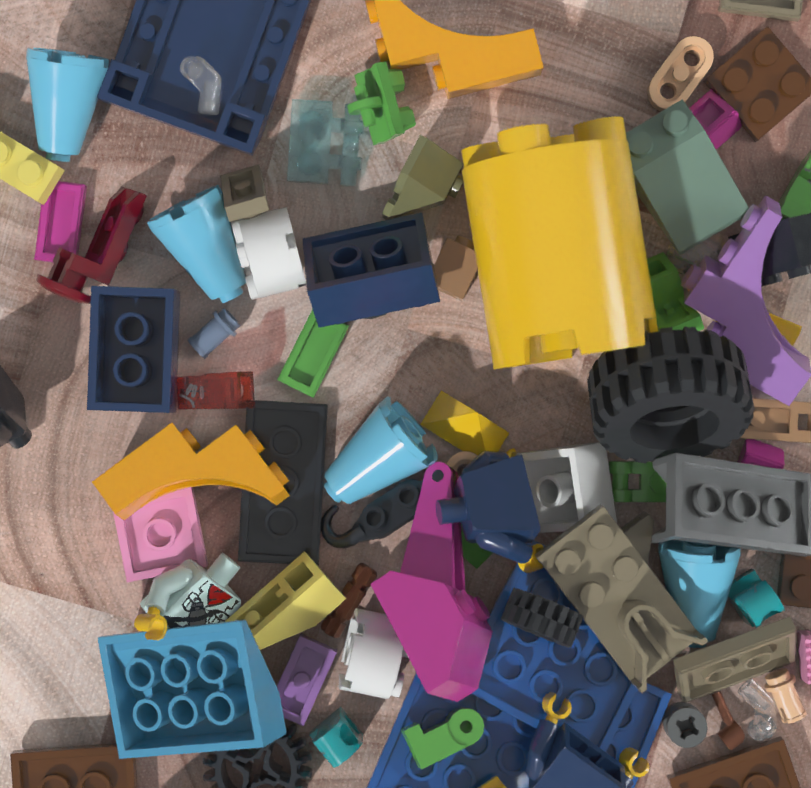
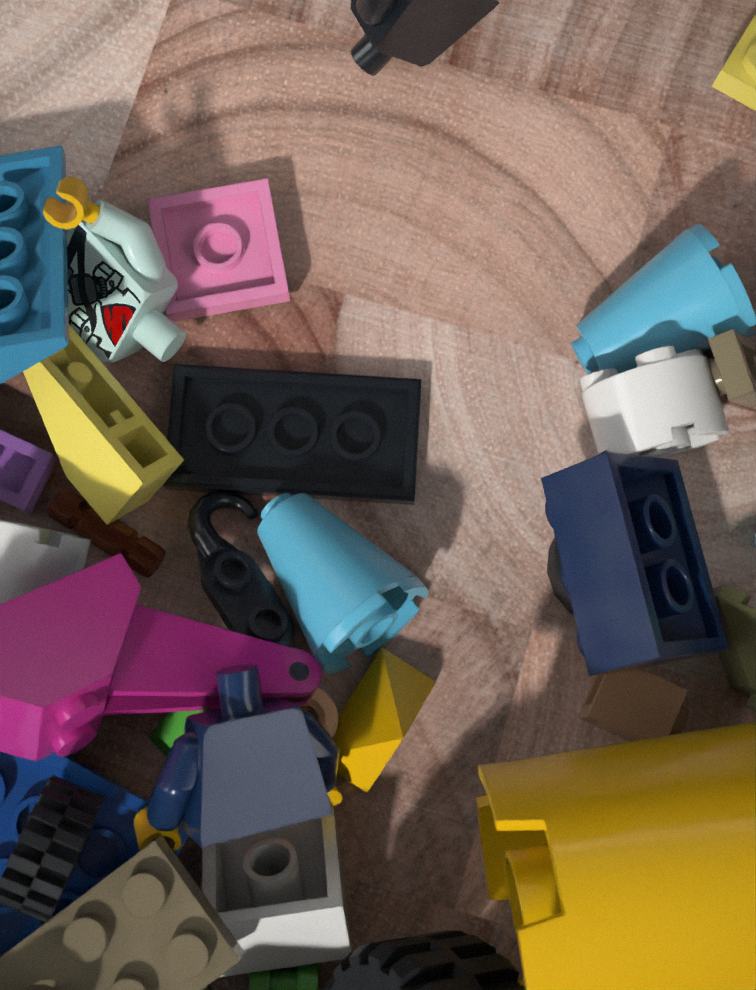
camera: 90 degrees right, 10 degrees down
(61, 221) = (681, 119): dark pink tile -> none
(104, 253) = (617, 124): dark red piece -> none
(133, 349) = (501, 208): dark blue brick -> none
(171, 464) = (328, 269): light orange arch -> none
(214, 332) = (523, 332): sand blue pin -> none
(216, 391) = (436, 331): clear red leg -> none
(312, 356) = (490, 481): bright green tile -> none

